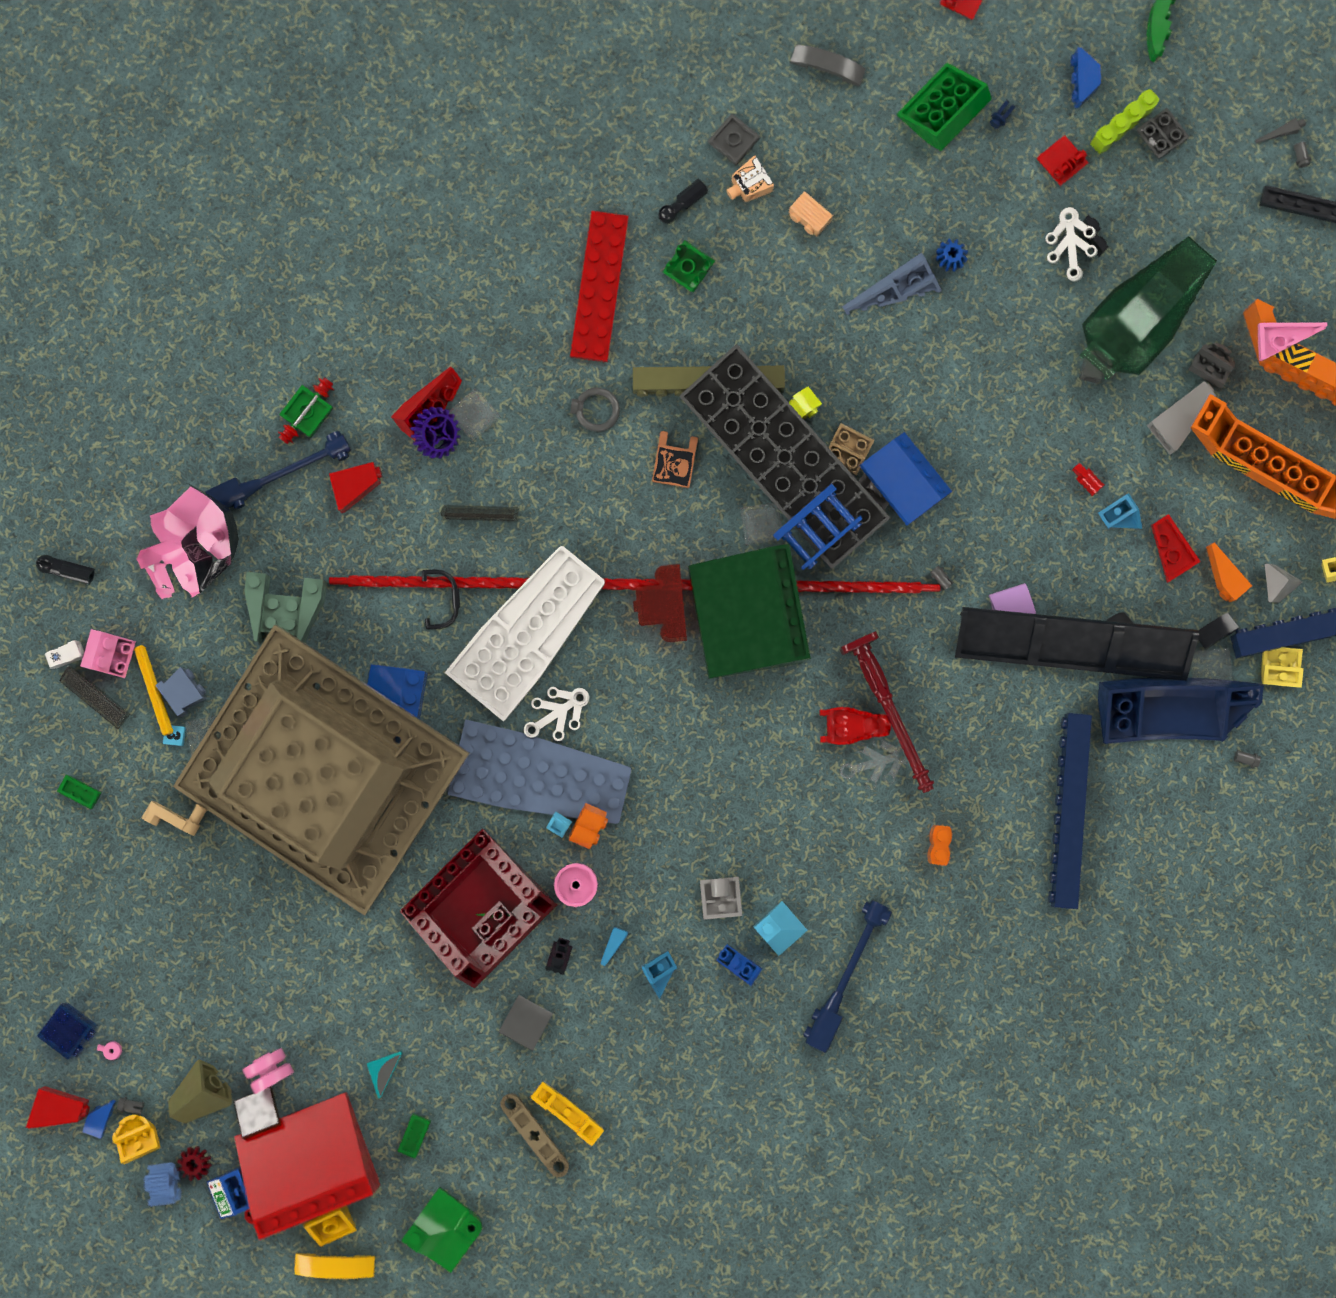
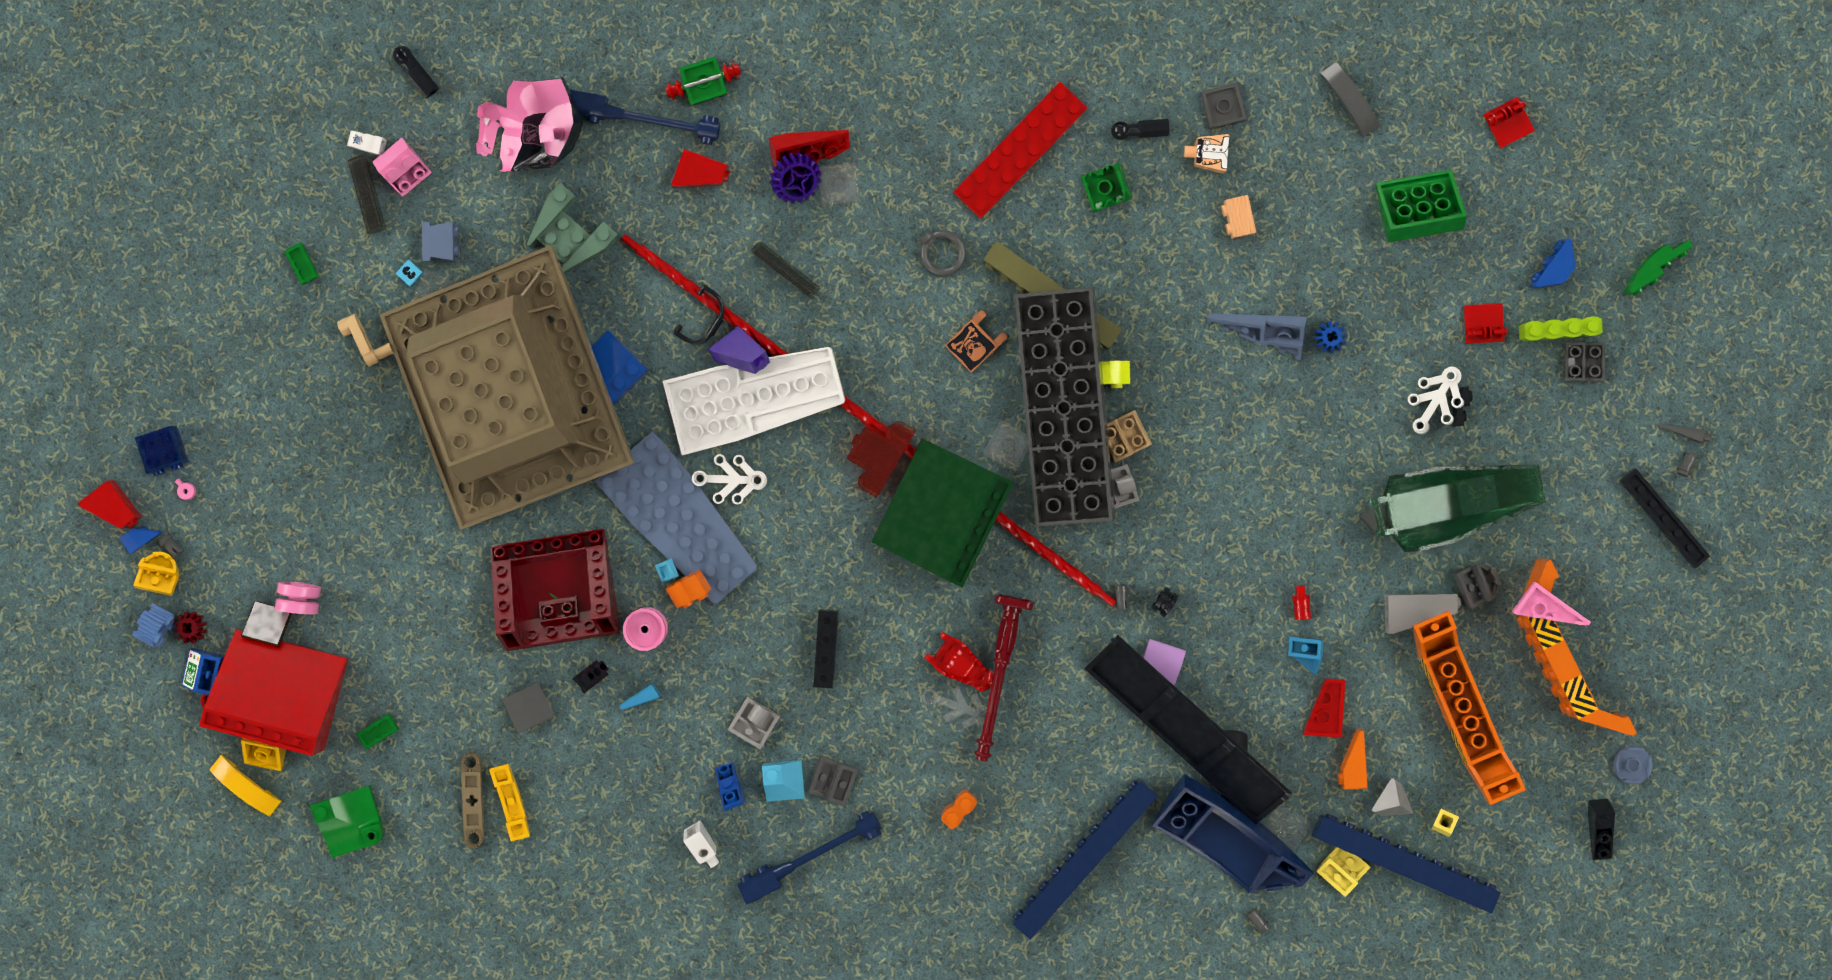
camera: 35 degrees right, 5 degrees up
(154, 693) = (416, 229): yellow axle -> none
(199, 1094) = (231, 576): olive slope -> none
(382, 1070) = (387, 662): tile -> none
(491, 602) = (740, 352): none -> dark purple slope
(659, 972) = (662, 744): dark azure slope -> none
(735, 793) = (825, 648): none -> black brick
(745, 1029) = (700, 844): none -> white torso
(800, 521) = (1056, 467): blue fence -> none
(819, 898) = (832, 780): none -> dark grey slope
(905, 478) = (1150, 496): blue slope -> none
(979, 555) = (1165, 601): none -> black wheel
(999, 120) = (1455, 250): dark blue arm -> none
(1216, 630) = (1312, 802): black slope -> none

